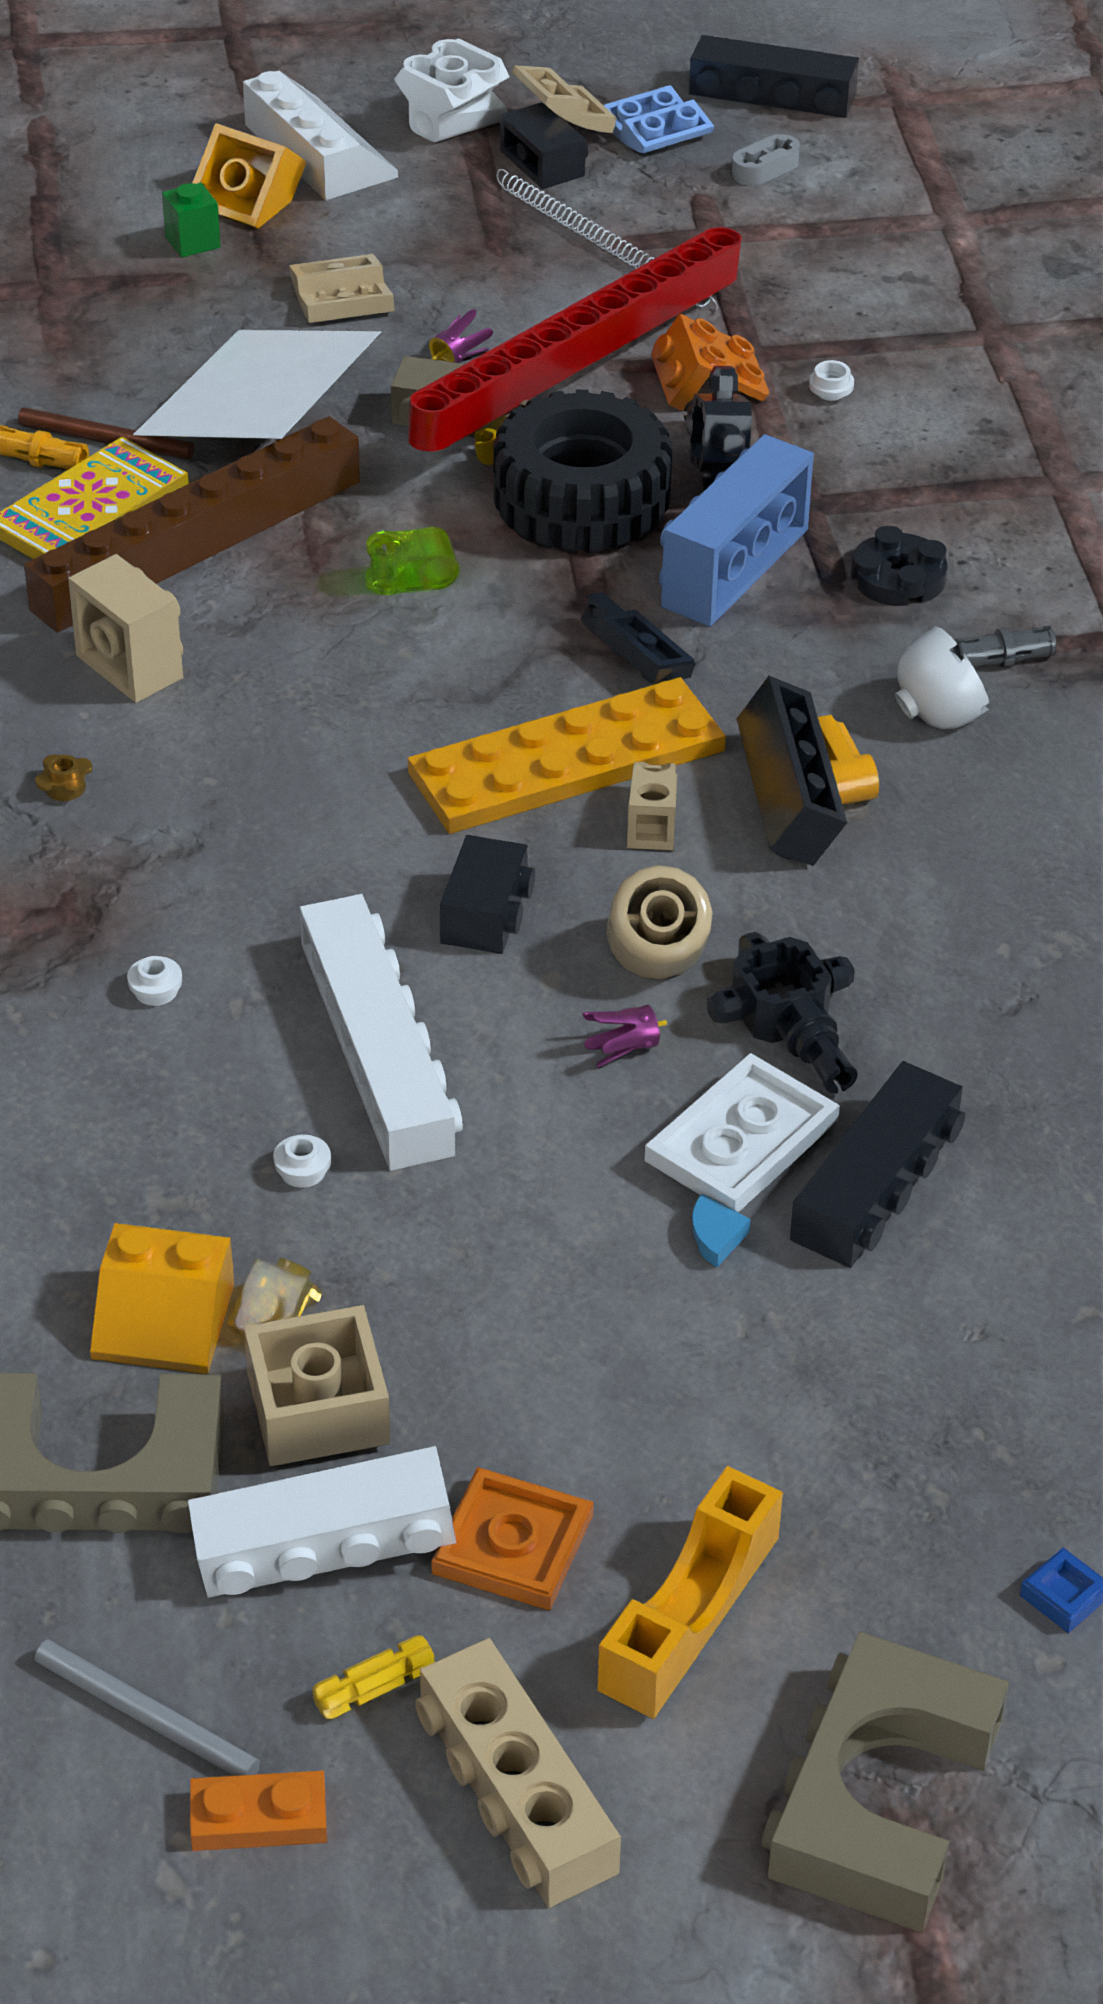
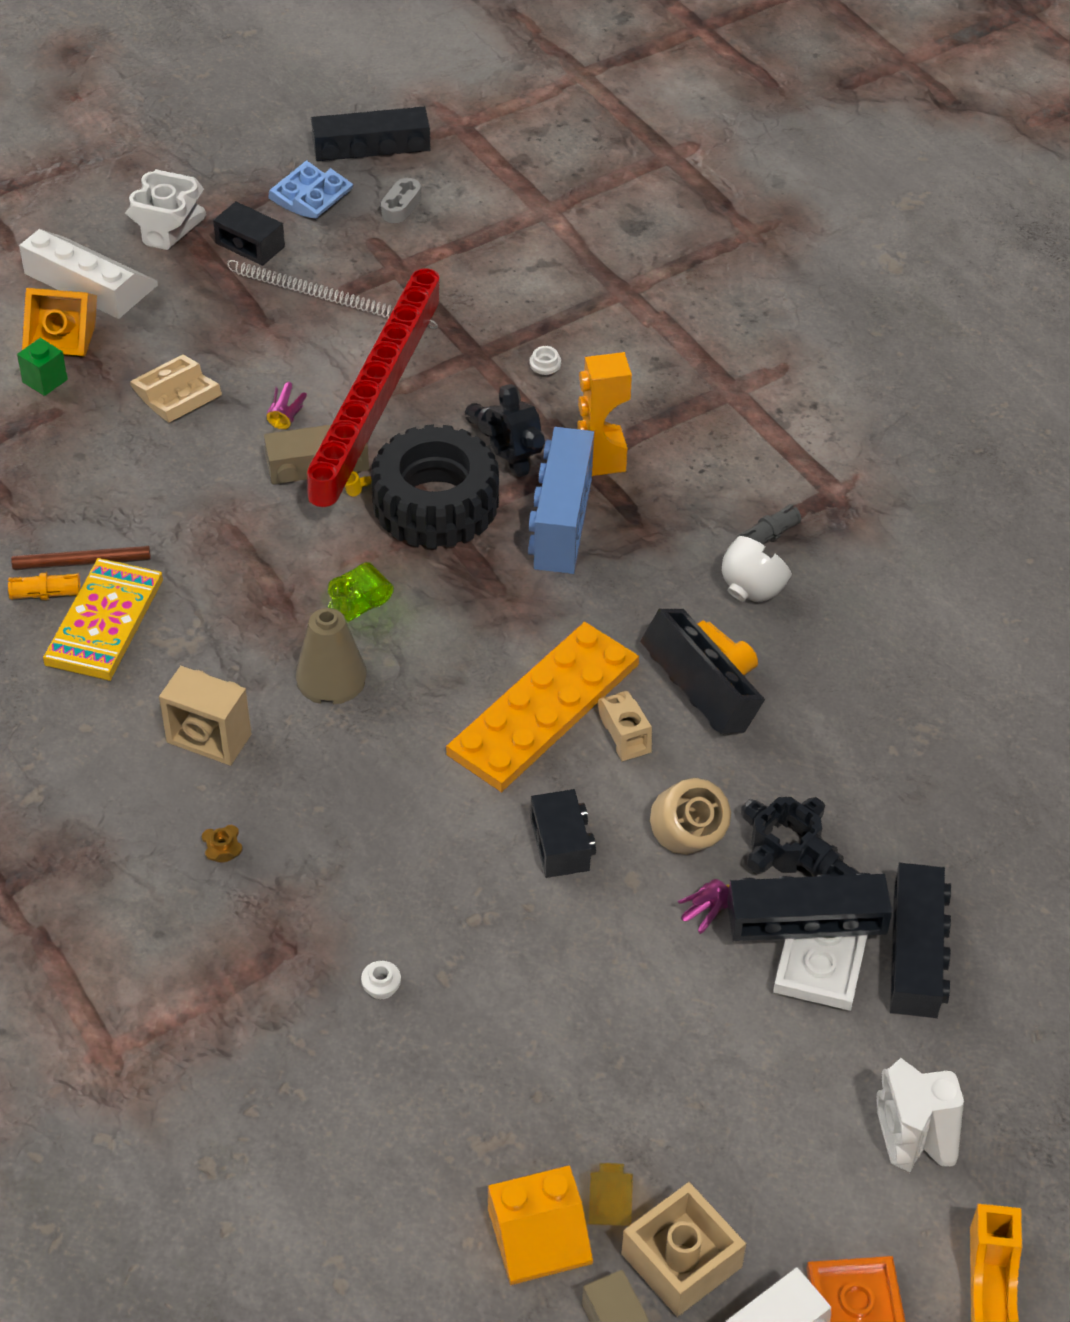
camera: 25 degrees left, 5 degrees up
(203, 515) = (192, 613): reddish brown brick -> none
(258, 384) = (173, 487): white sticker -> none
(302, 1160) = (561, 1088): white plate -> none
(320, 614) = (330, 660): none -> dark tan cone
(379, 1032) = (555, 964): white brick -> none
(566, 100) = (247, 192): tan slope -> none
(637, 640) = (540, 603): black hinge -> none
(691, 351) = (453, 372): orange bracket -> none
(717, 1229) = (845, 1024): dark azure tile -> none
(729, 1350) = (920, 1114): none -> white piece
(741, 1068) = (809, 907): none -> black brick
(844, 392) = (605, 386): none -> light orange arch
(920, 563) = (659, 476): black plate -> none

